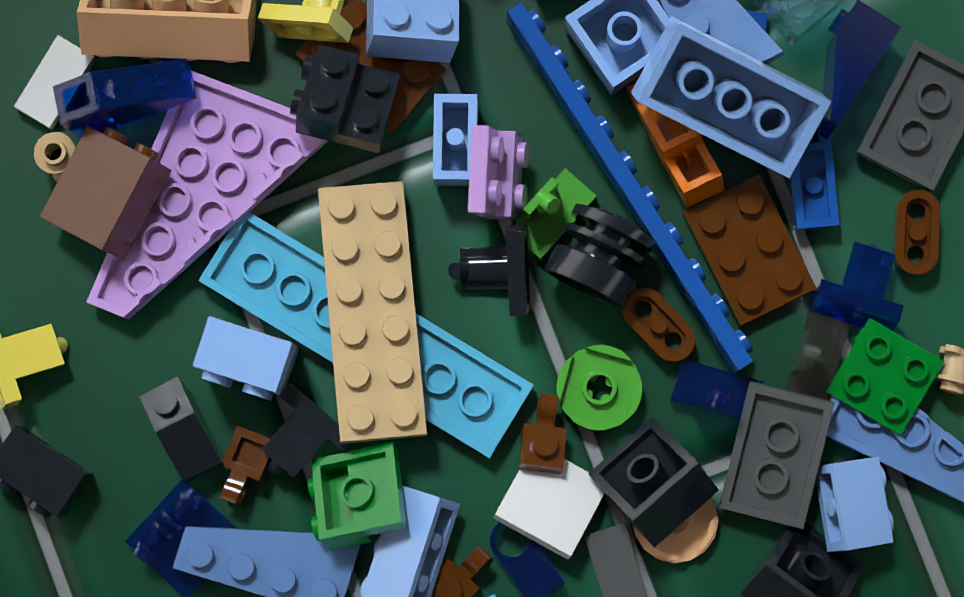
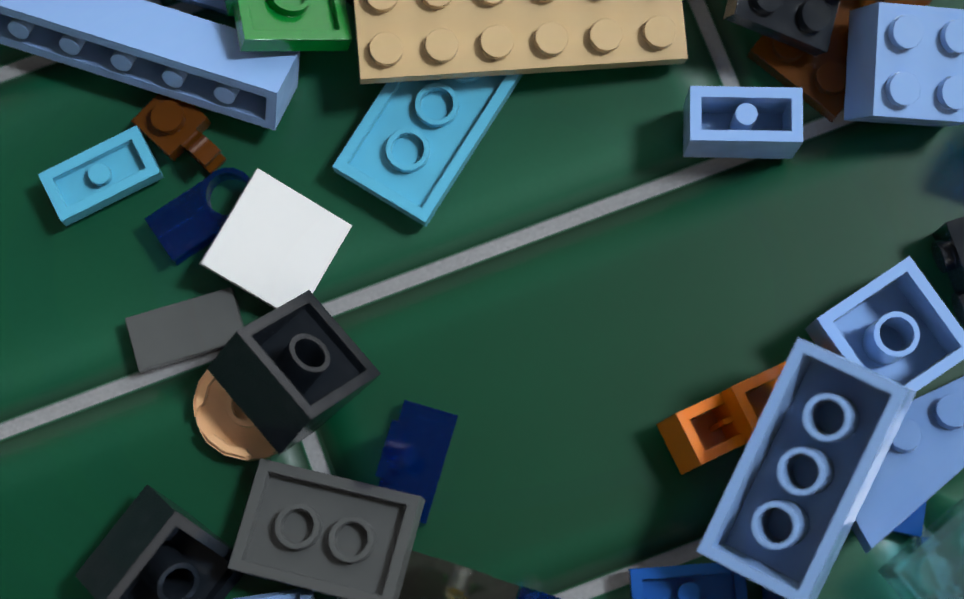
camera: 85 degrees right, 5 degrees down
(497, 173) = (699, 168): lavender plate -> none
(498, 269) = (577, 183): black piece -> none
(542, 443) = (349, 233): reddish brown plate -> none
(551, 211) = (650, 249): bright green piece -> none
(600, 255) = (591, 303): black wheel -> none
(611, 409) = (405, 280): bright green plate -> none
(620, 172) = (663, 362): blue plate -> none
(660, 323) = (501, 385): reddish brown plate -> none
(749, 250) = (601, 507): reddish brown plate -> none

